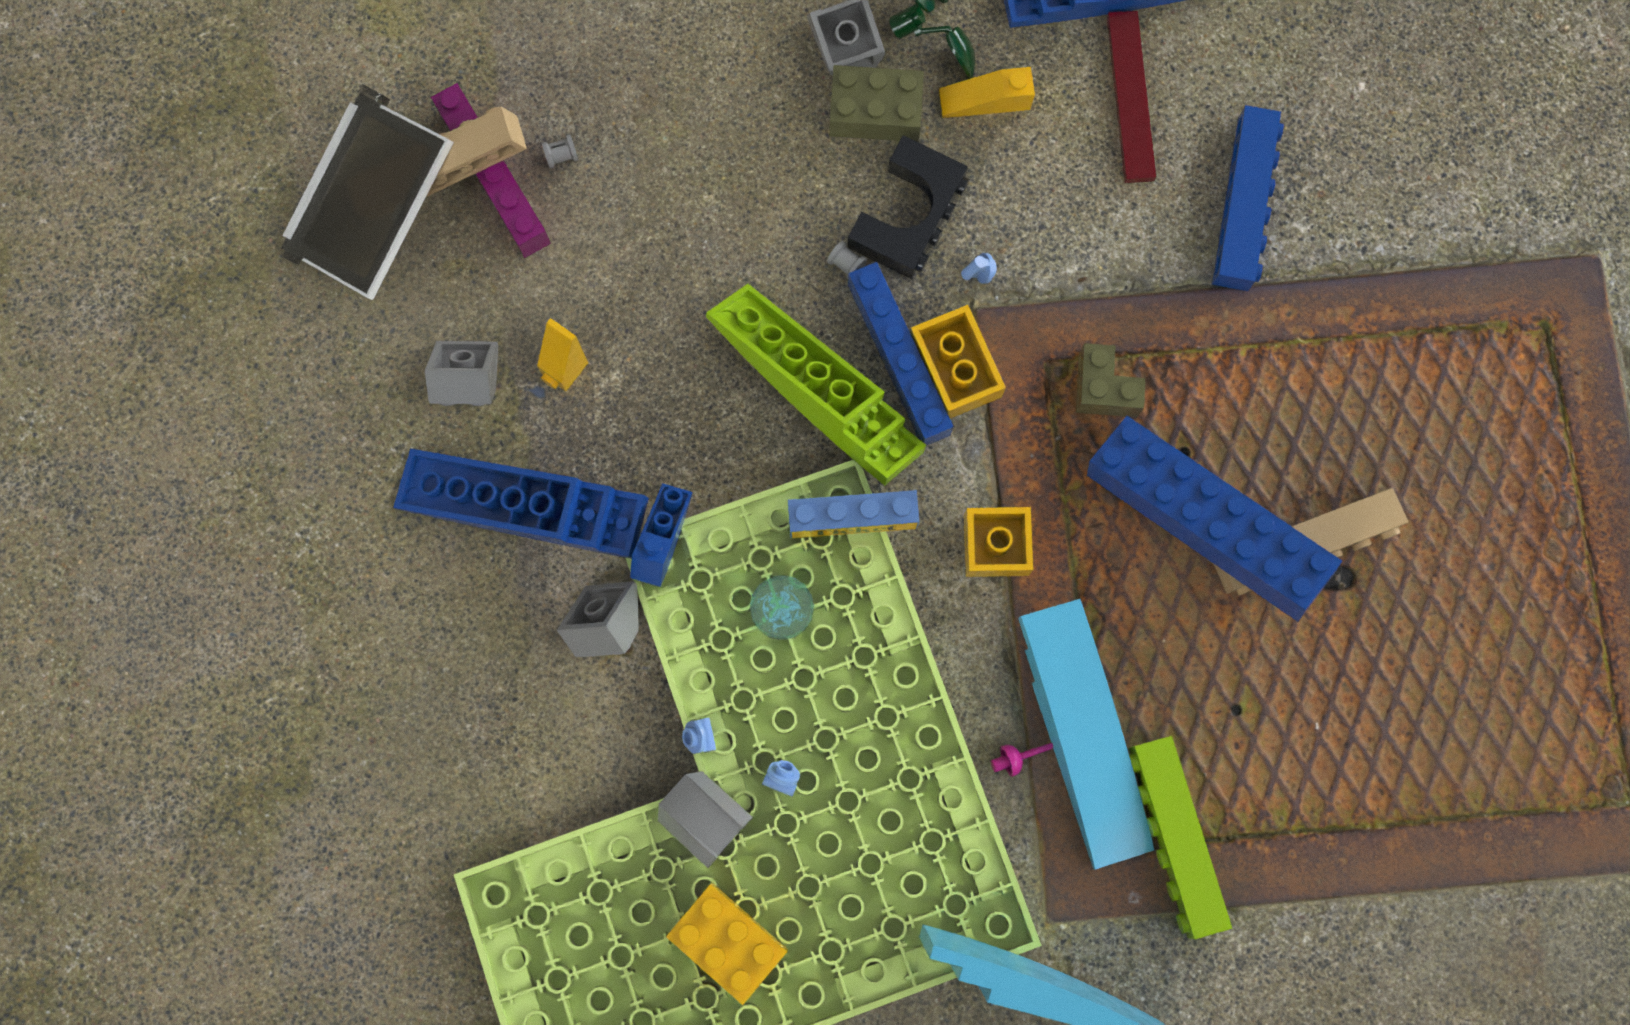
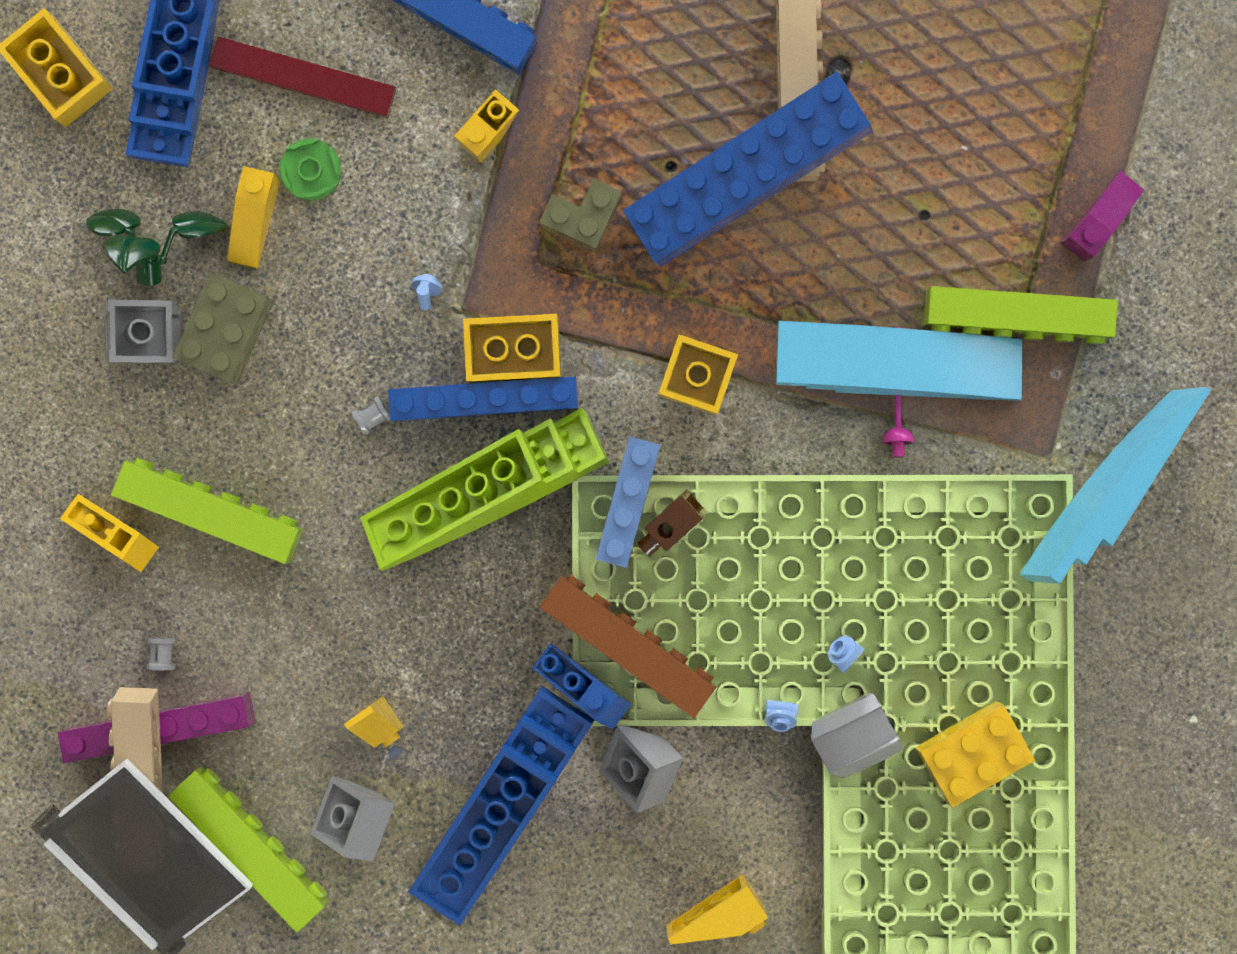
camera: 65 degrees left, 10 degrees up
(405, 289) = (249, 848): none -> lime brick
(484, 753) = (723, 914): none -> yellow slope
(654, 71) = (109, 532): none -> yellow slope
(704, 148) = (207, 511): none -> lime brick
(715, 563) = (628, 646): none -> dark orange brick
(782, 607) = (689, 598): clear light blue tile -> none
(859, 569) = (681, 515): none -> reddish brown torso
(906, 248) = (325, 295): black arch -> none
(1050, 131) = (310, 169): none -> bright green tile
(1153, 268) = (487, 126): none -> yellow slope
(1307, 886) = (1103, 217): none -> magenta slope

